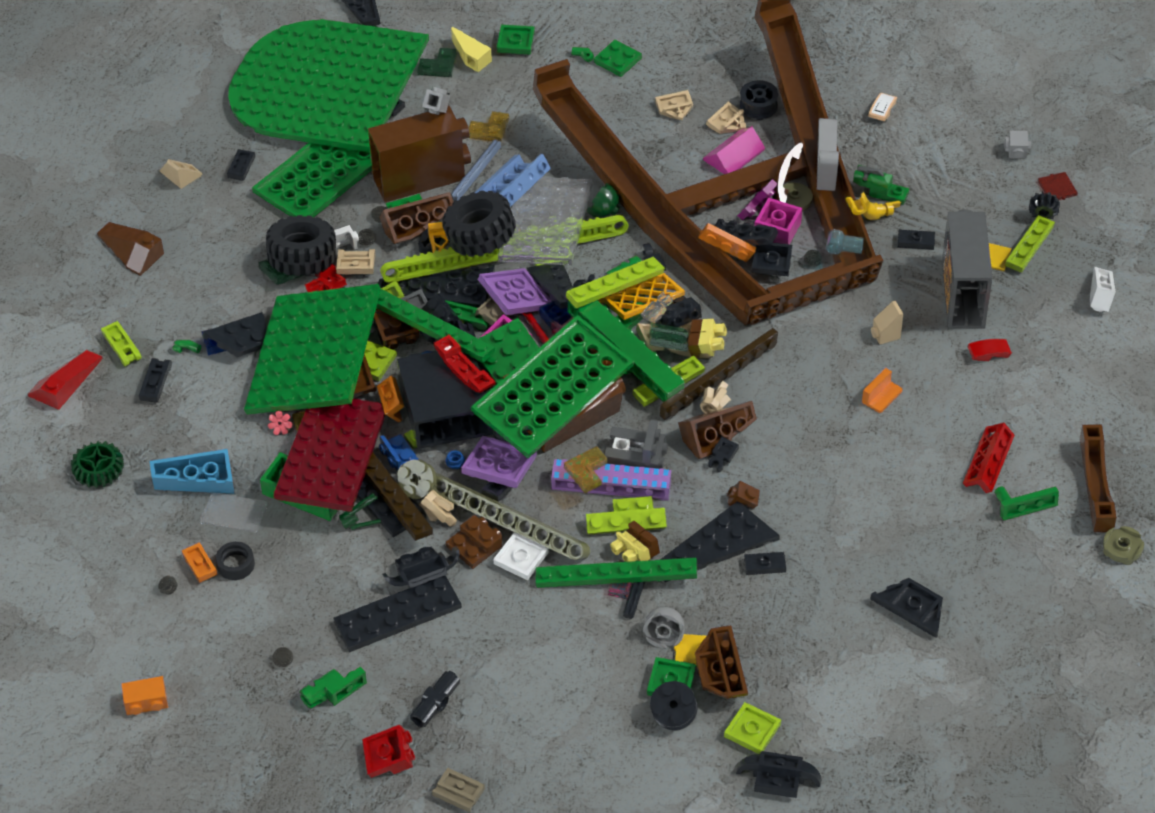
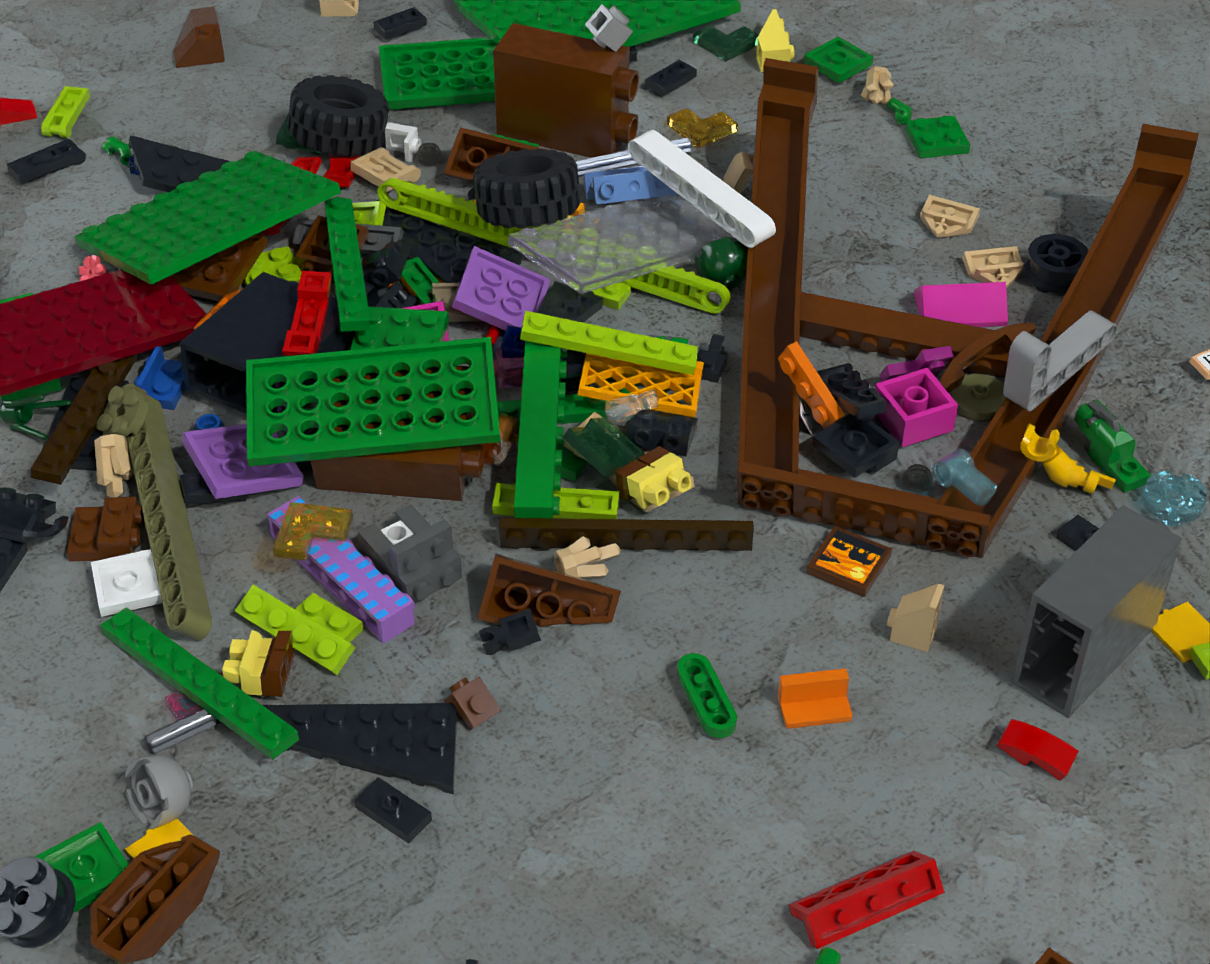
camera: 40 degrees right, 5 degrees down
(554, 148) = (739, 171): none -> tan slope
(556, 44) = (877, 85): none -> tan rock
(564, 167) = (702, 188): none -> white beam
(825, 319) = (849, 561): none -> tile
(836, 421) = (706, 685): none -> green plate
(934, 200) = (1169, 509): none -> clear light blue plate

